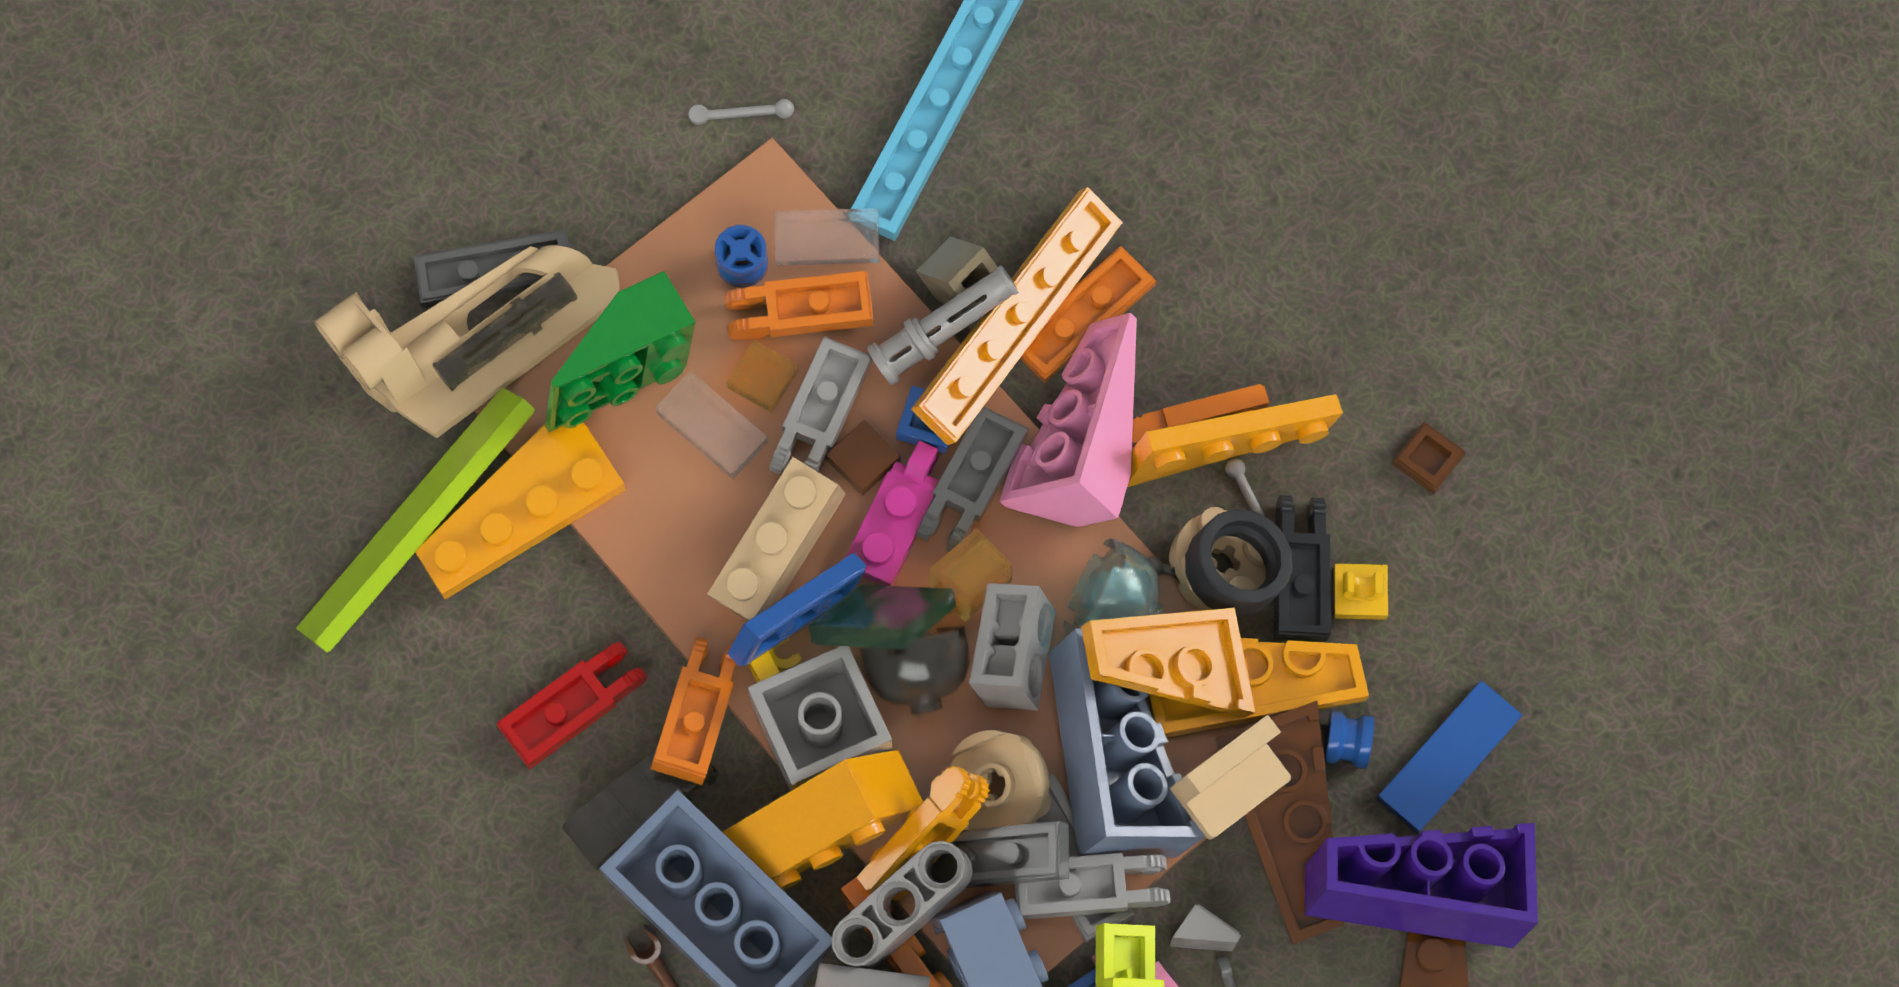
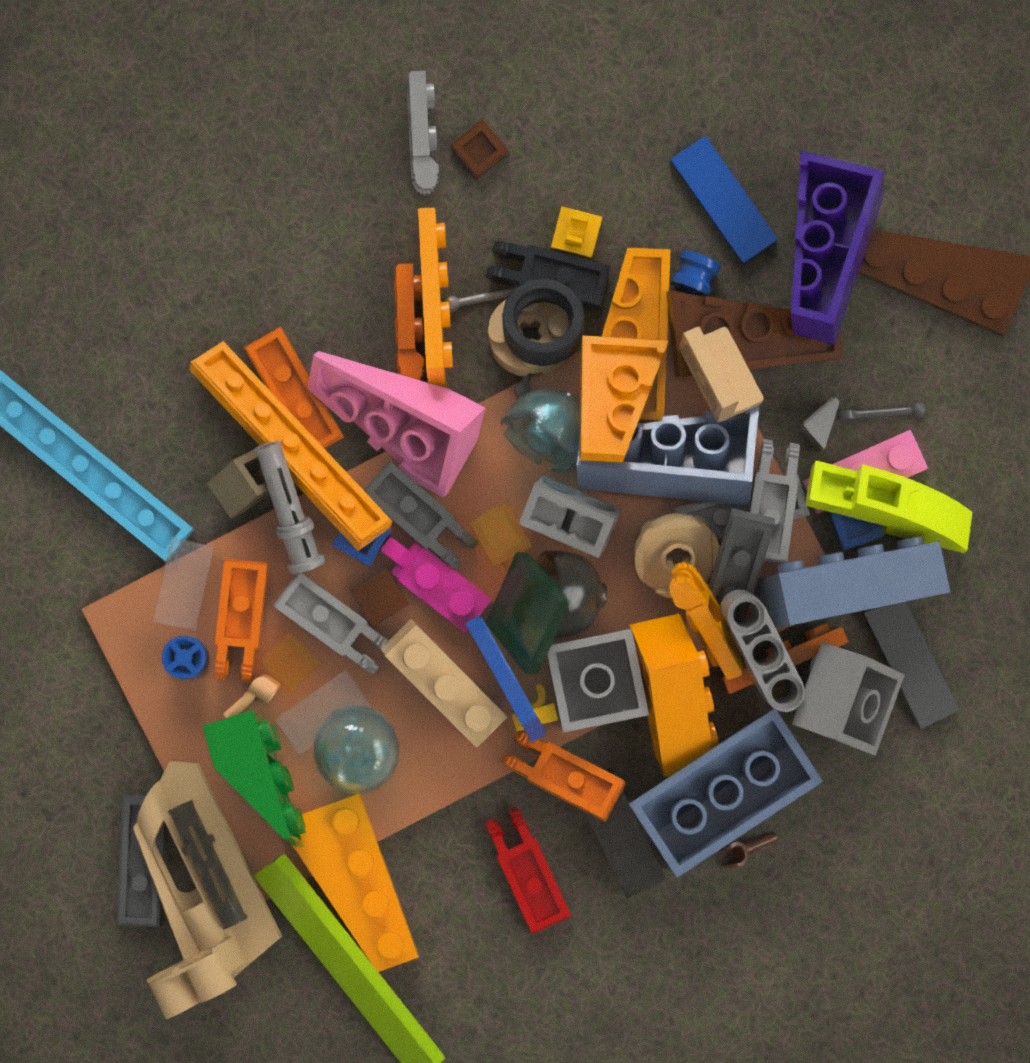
camera: 75 degrees left, 15 degrees up
(675, 467) = (356, 749): none -> clear light blue cylinder
(699, 114) = (44, 663): light grey hinge -> none
(725, 348) = (262, 687): none -> light nougat hand
(1425, 384) = (421, 136): none -> light grey hinge

